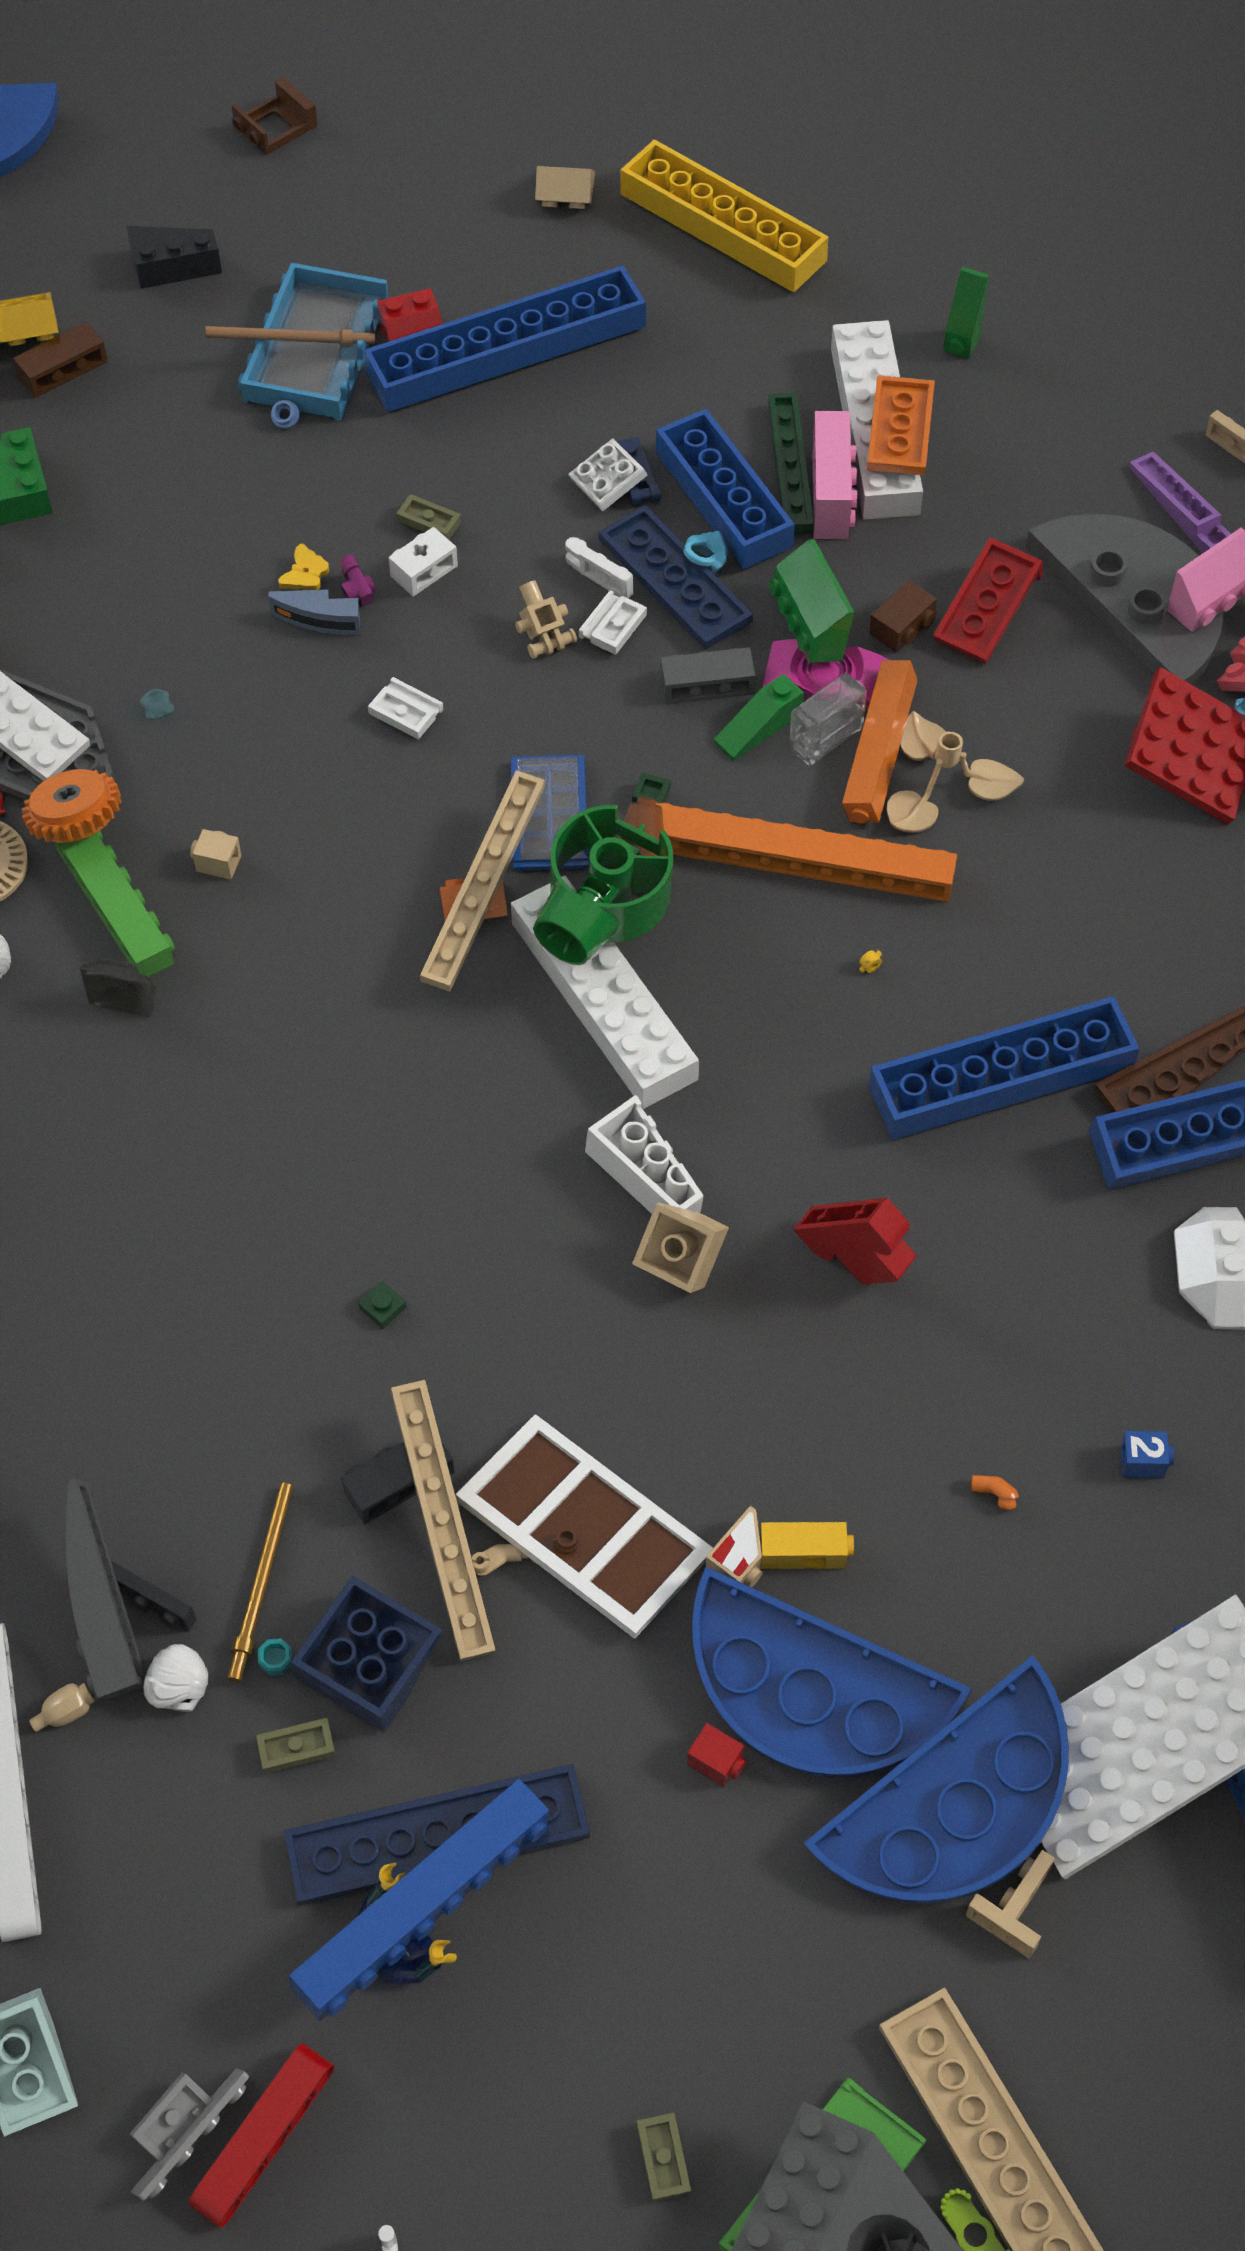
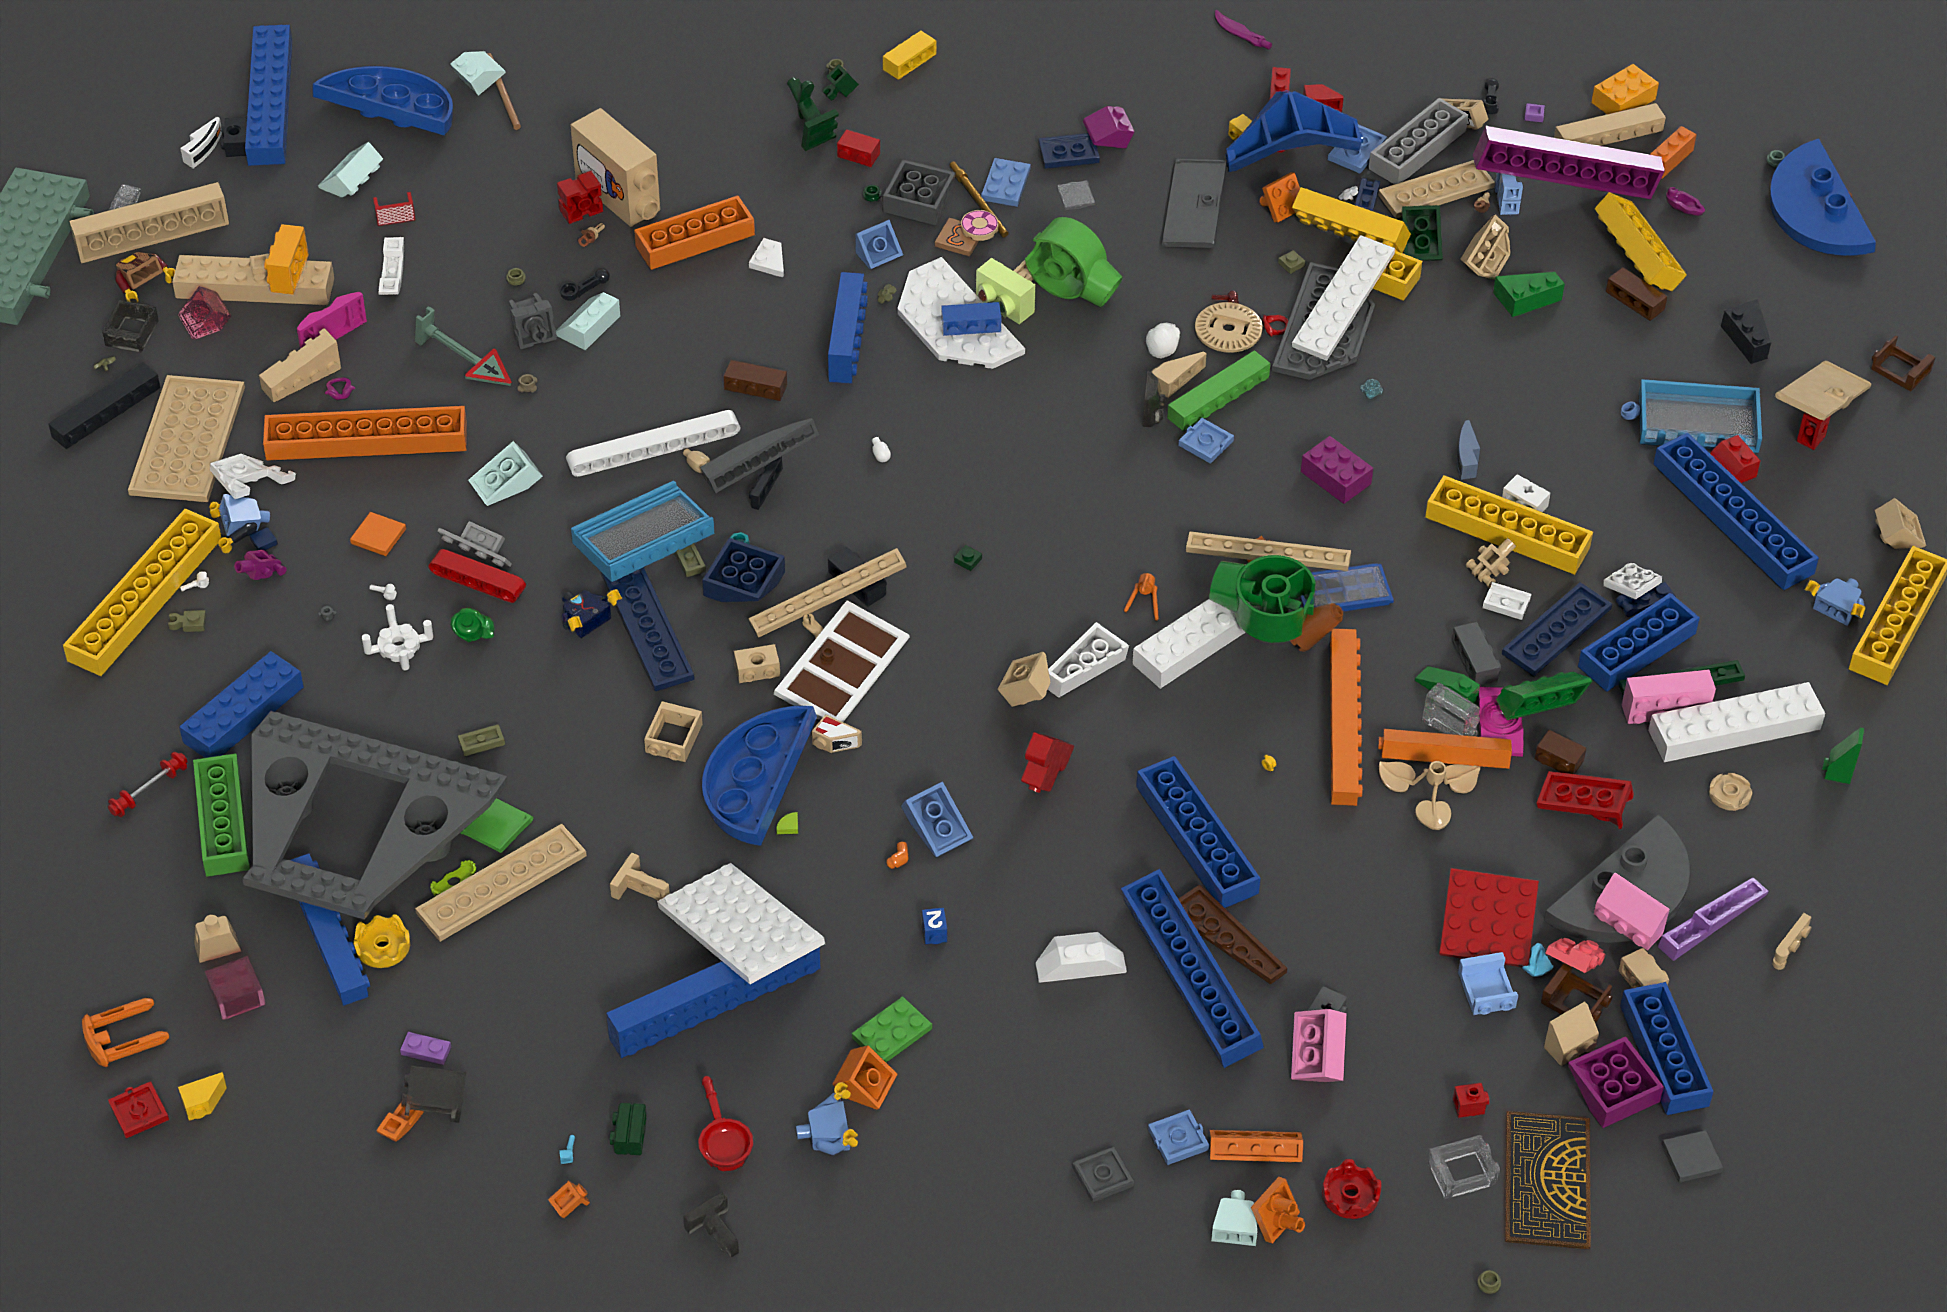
camera: 80 degrees right, 10 degrees down
(60, 948) = (1177, 372): none -> tan slope
(71, 806) = (1269, 352): orange gear -> none
(113, 1403) = (880, 450): none -> white cylinder
(175, 1676) = (719, 500): white hair -> none
(211, 932) = (1206, 440): none -> medium blue plate
(216, 853) = (1263, 432): tan brick -> none
(229, 1816) = (642, 531): none -> dark azure window
(244, 1644) = (745, 528): pearl gold bar -> none
(306, 572) = (1498, 442): yellow animal -> none
(318, 773) = (1336, 469): none -> magenta brick
(324, 192) = (1823, 390): none -> tan door
(345, 337) = (1705, 427): medium nougat bar -> none
(356, 585) = (1496, 468): magenta plate -> none
(375, 221) = (1812, 431): none -> red brick
(394, 2147) = (472, 625): none -> green hair
(405, 708) = (1403, 506): white plate -> none
(419, 1900) = (603, 609): blue brick -> none
(424, 515) = (1565, 496): olive plate -> none
(476, 589) = (1498, 518): none -> yellow brick
(498, 1060) = (1145, 585): none -> orange plant
(559, 1637) = (757, 663): none -> tan brick
(598, 568) = (1550, 586): white hinge -> none
(652, 787) = (1372, 636): dark green plate -> none
(681, 1771) = (670, 714): none -> tan window
(685, 269) = (1838, 599): none -> medium blue torso
(710, 545) = (1575, 648): medium azure piece -> none
(716, 1755) = (708, 736): red brick -> none
(805, 1545) = (844, 765): yellow brick -> none
(900, 425) = (1716, 721): orange plate -> none
(910, 1646) = (788, 824): none -> lime tile
(932, 1423) = (937, 819): none -> medium blue slope
(961, 1803) = (692, 843): blue plate -> none
(982, 455) = (1730, 791): none -> tan tile

